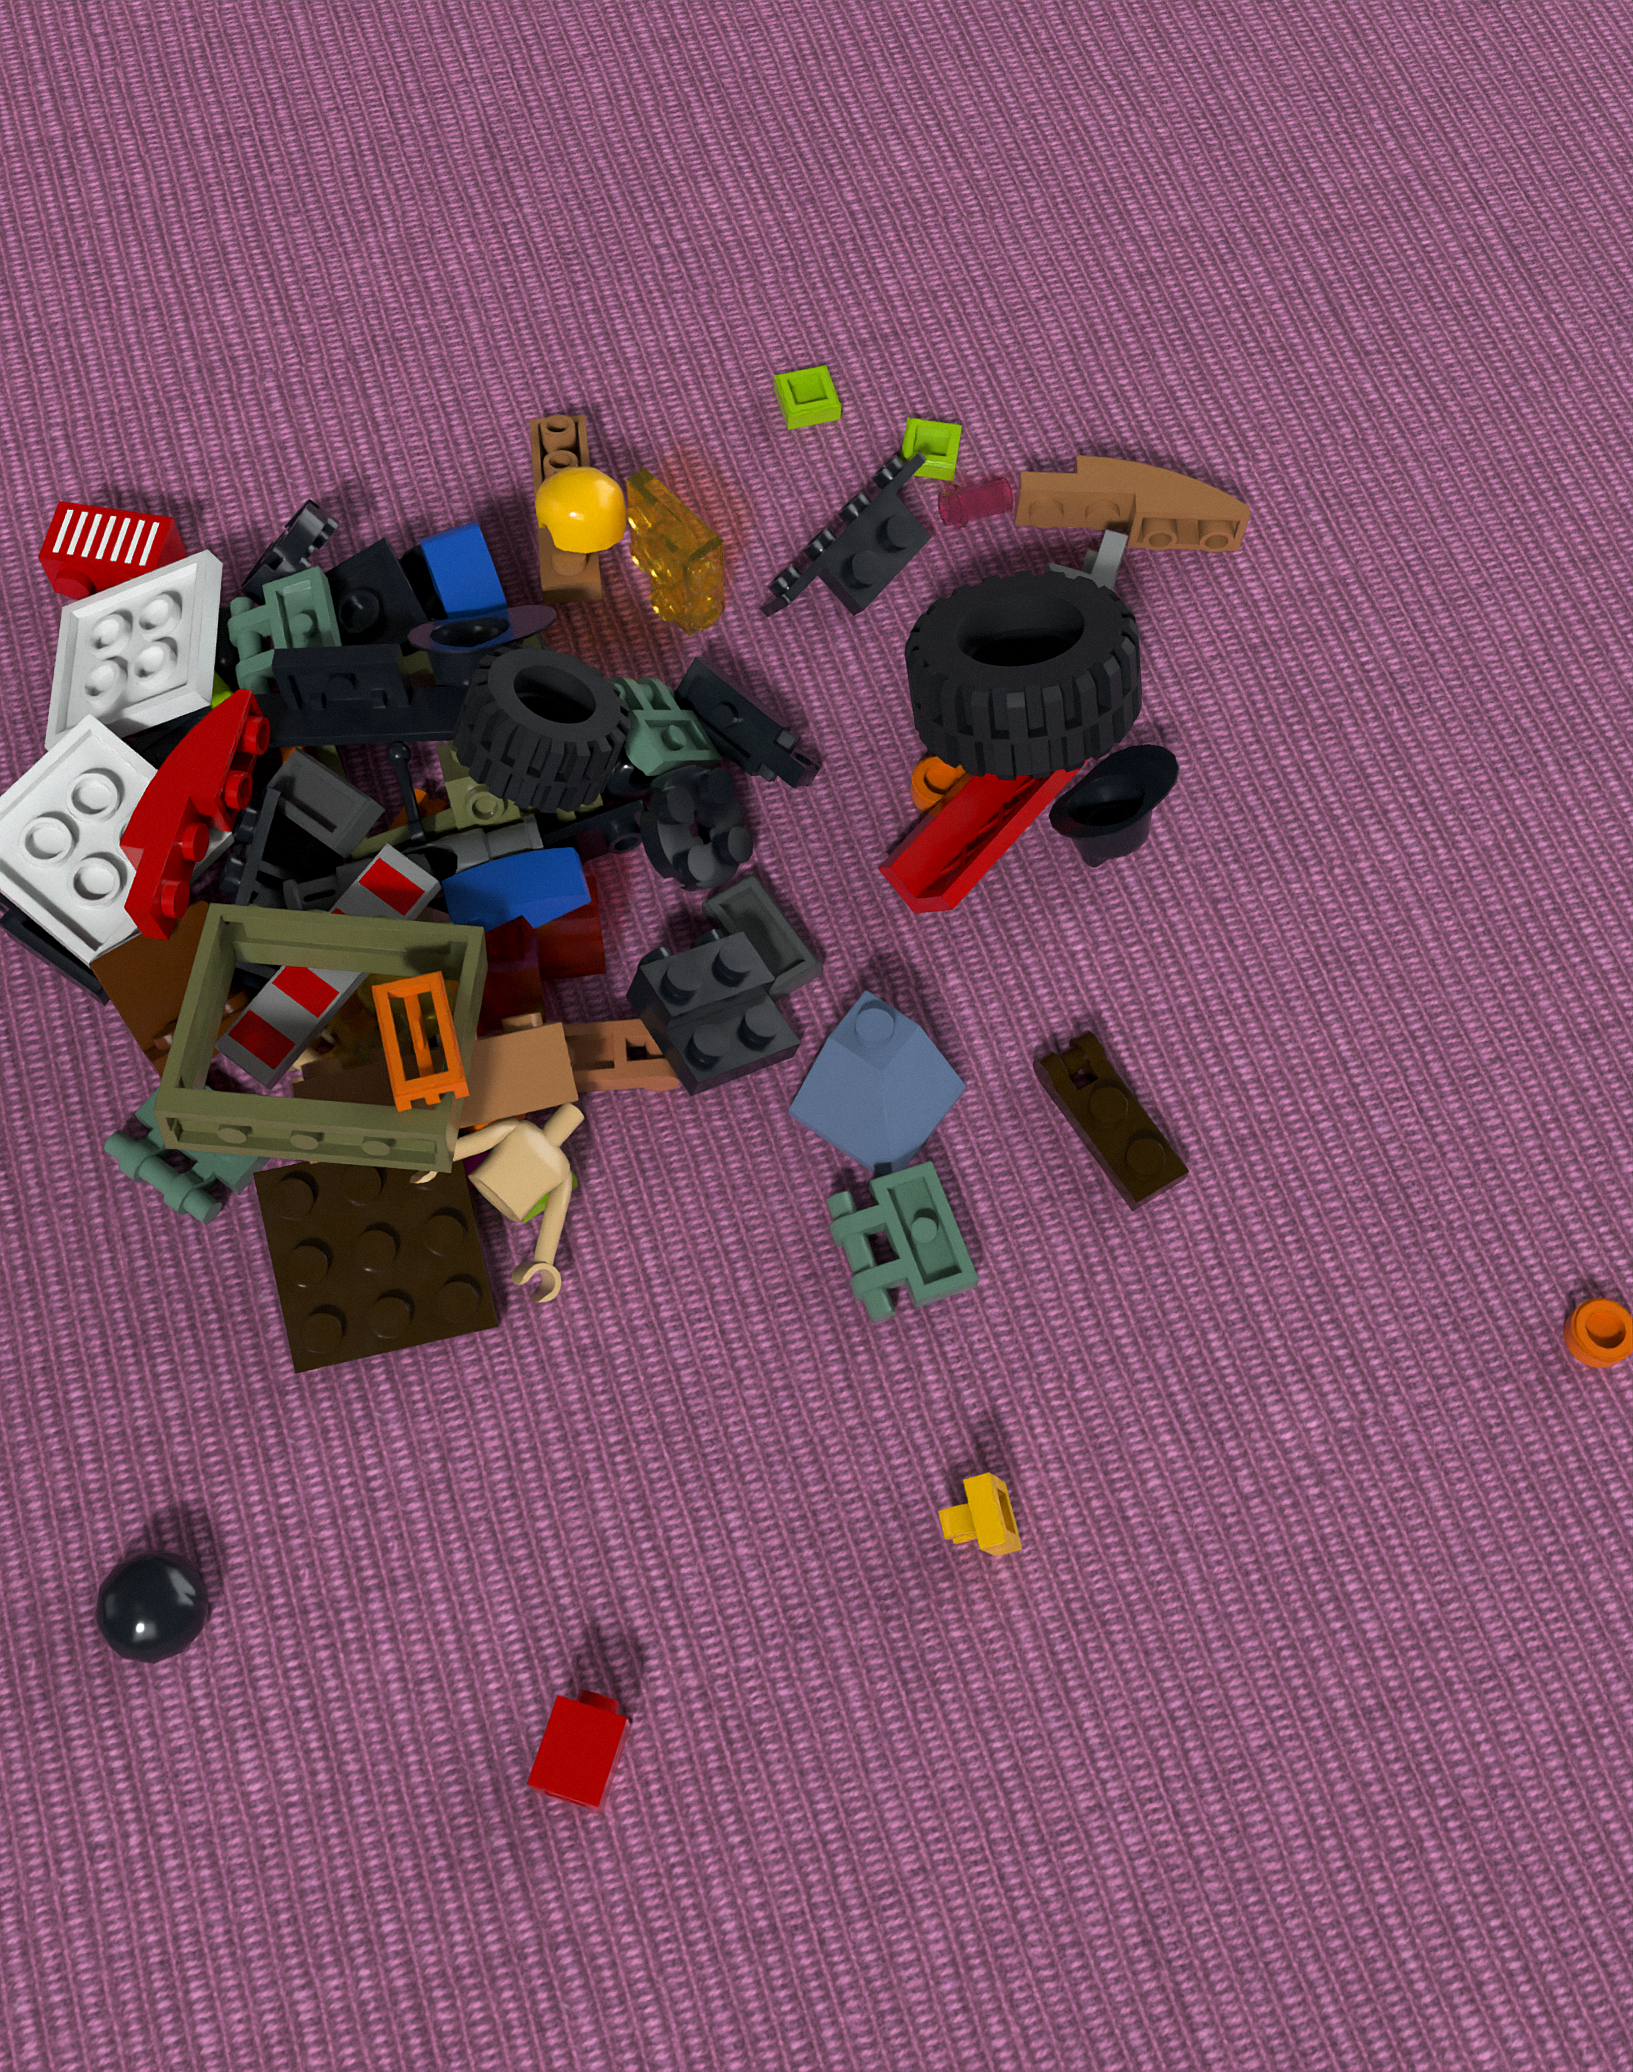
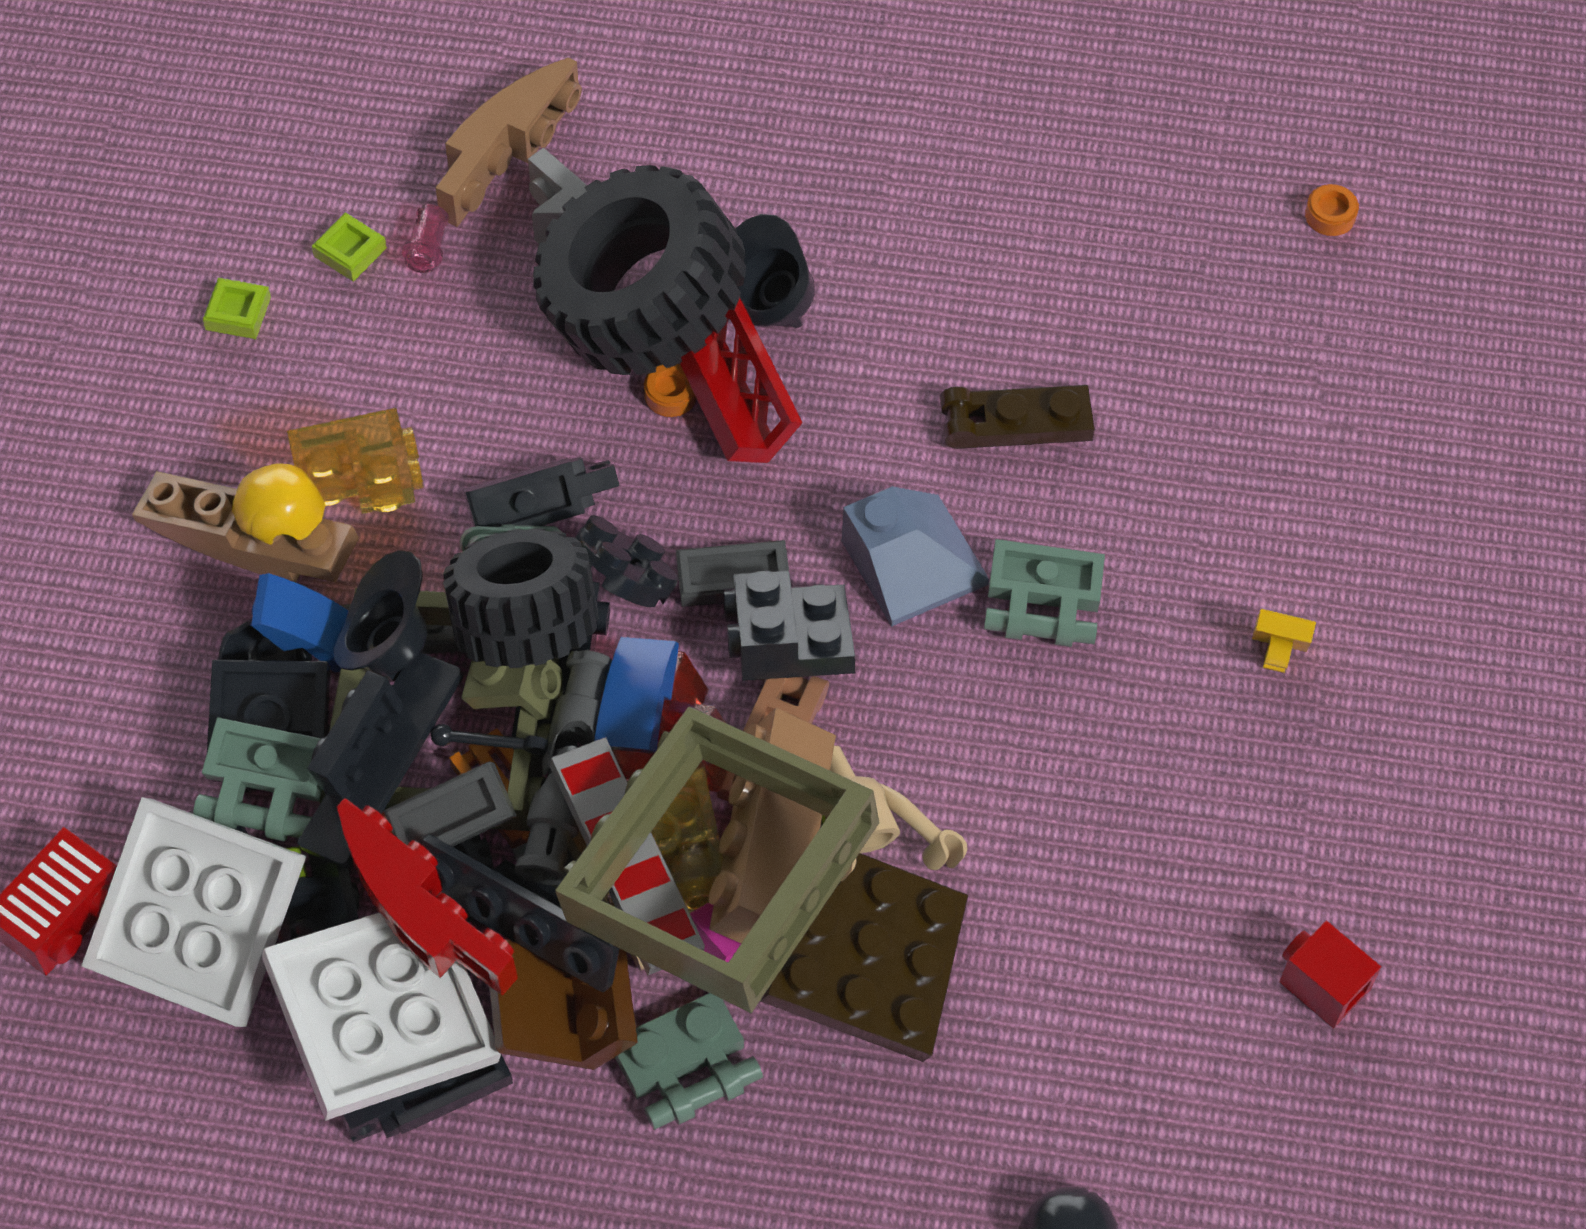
camera: 60 degrees left, 5 degrees down
(291, 551) = (161, 750): black plate -> none
(429, 1083) = (778, 786): orange tile -> none
(863, 550) = (416, 338): black bracket -> none

